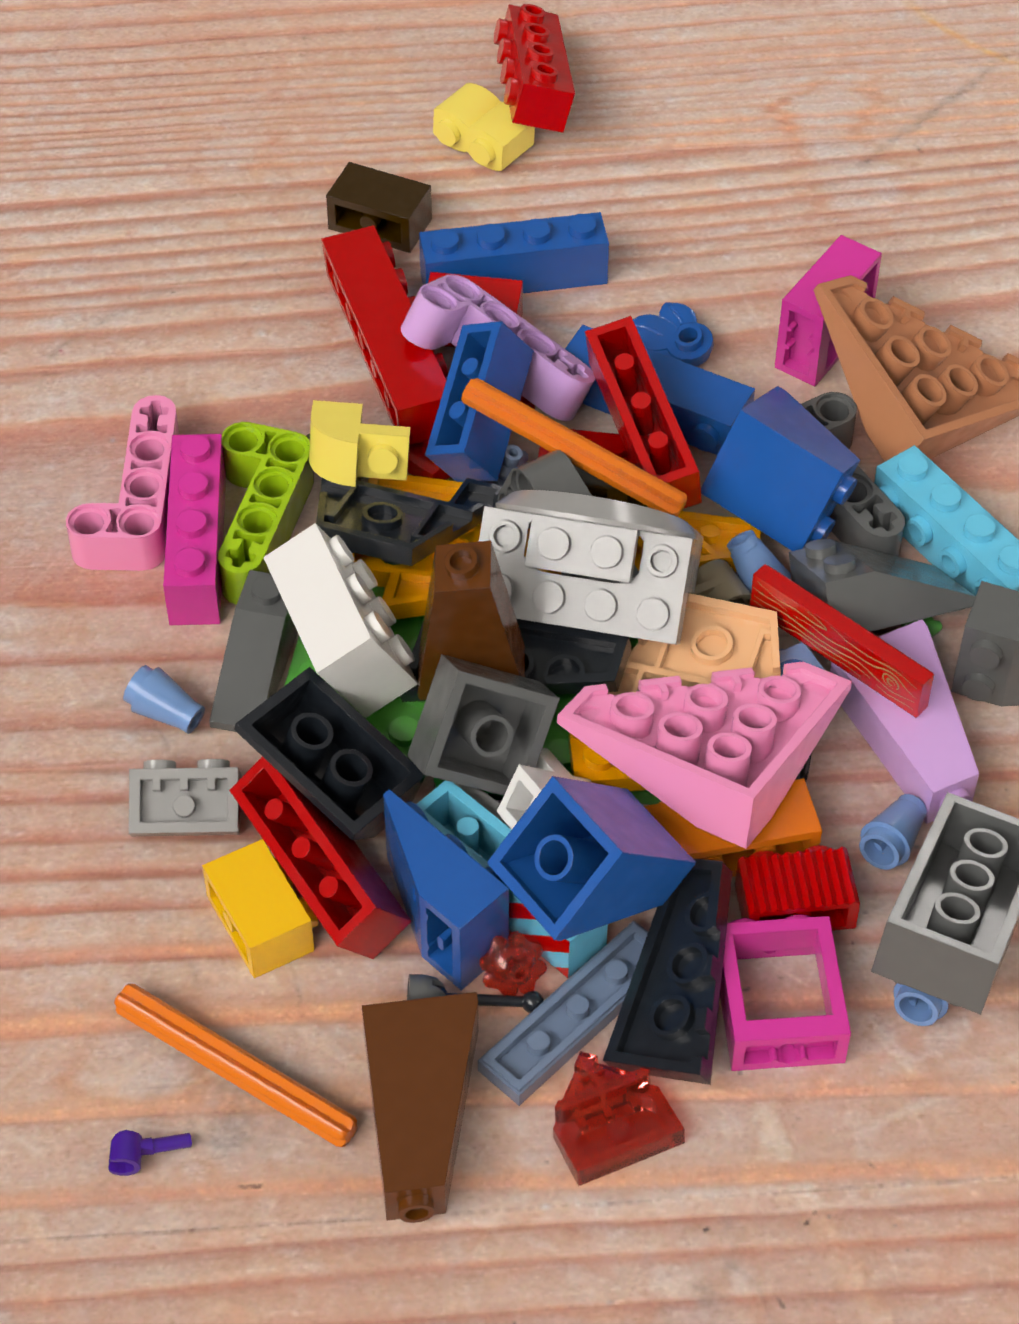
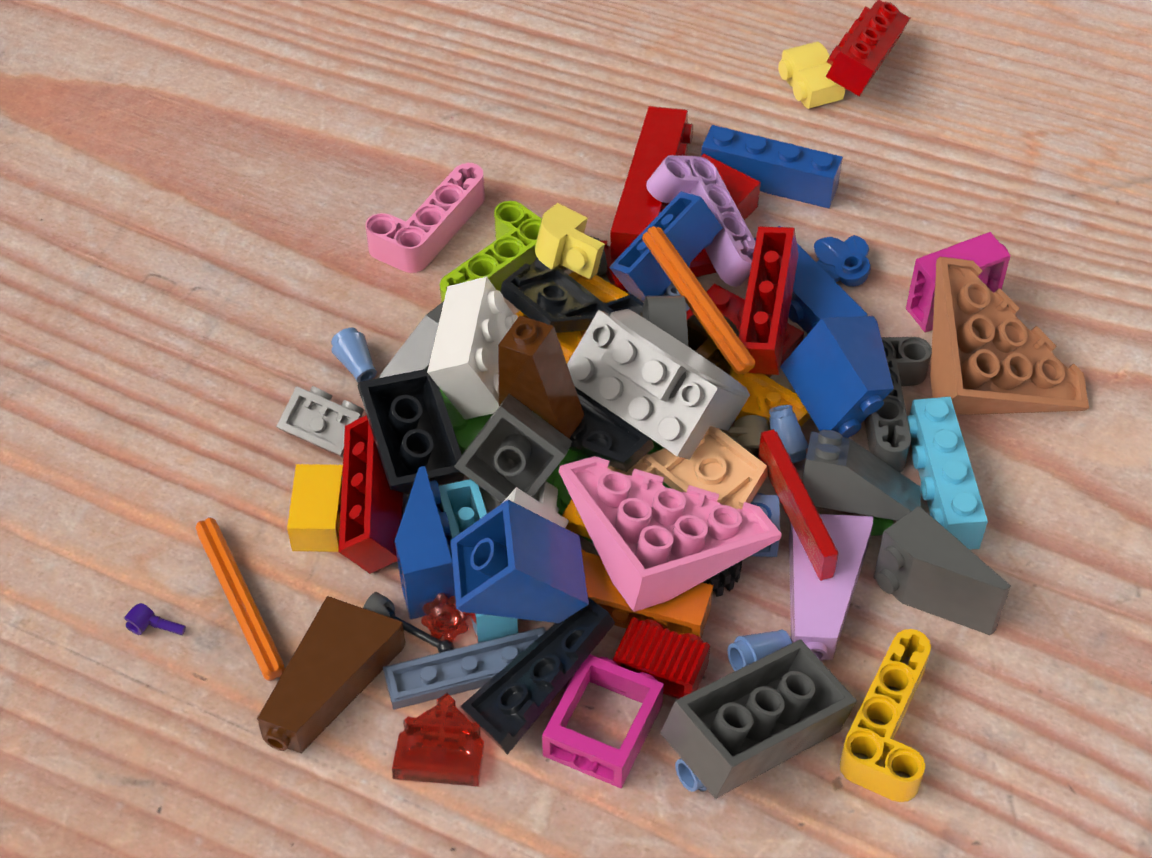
camera: 30 degrees right, 0 degrees up
(194, 530) = (457, 238): dark pink brick -> none
(377, 198) = (707, 99): dark brown brick -> none

